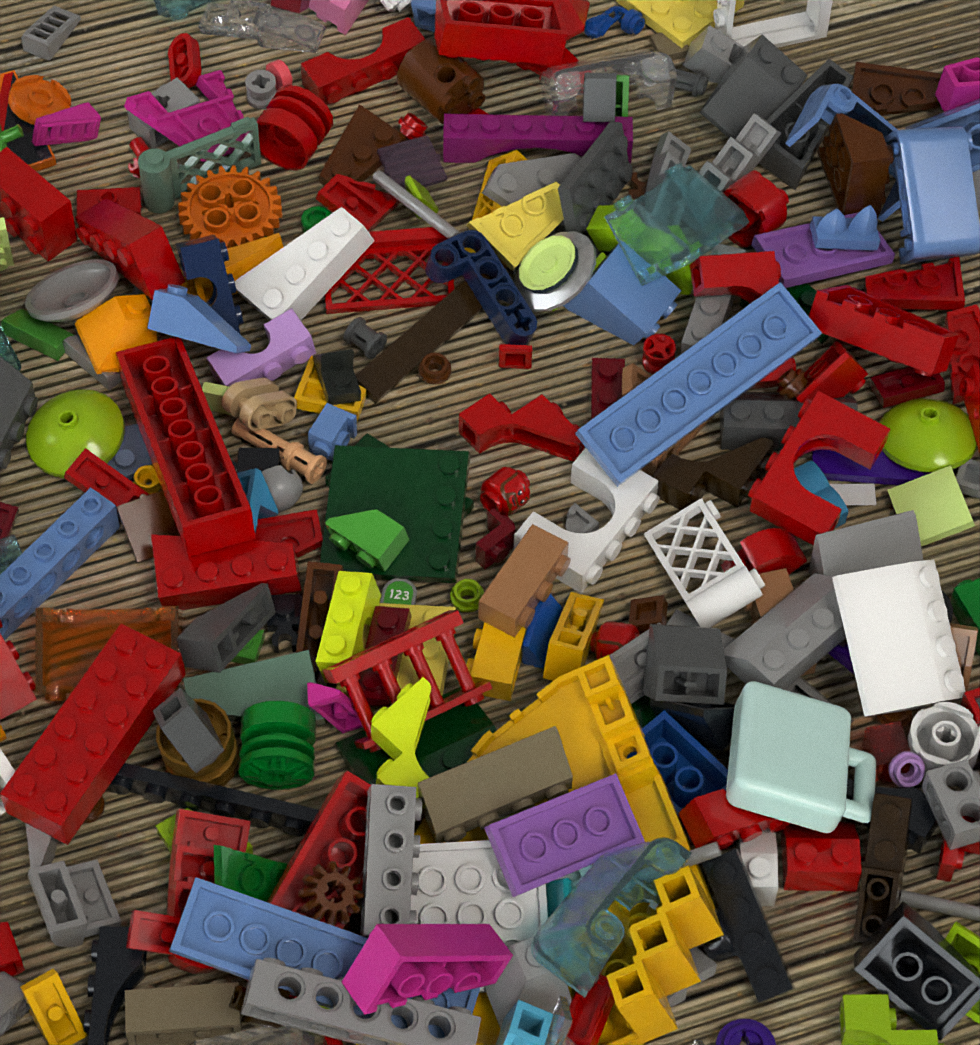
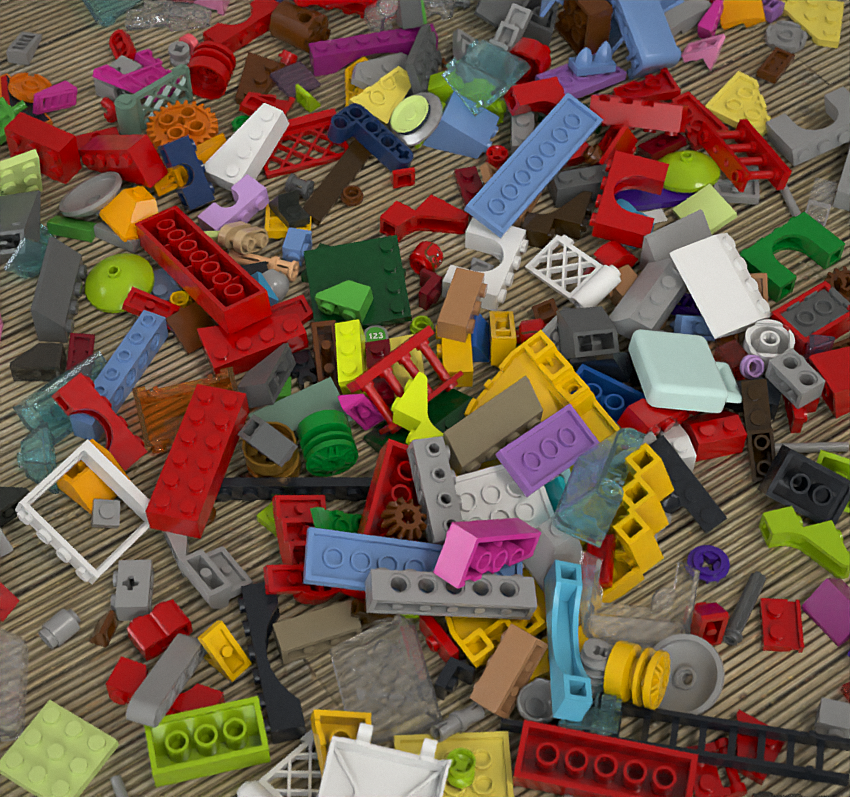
camera: 15 degrees left, 5 degrees down
(192, 319) = (180, 191): medium blue slope -> none
(415, 205) = (315, 102): light grey bar -> none
(837, 687) = (691, 325): none -> medium blue tile

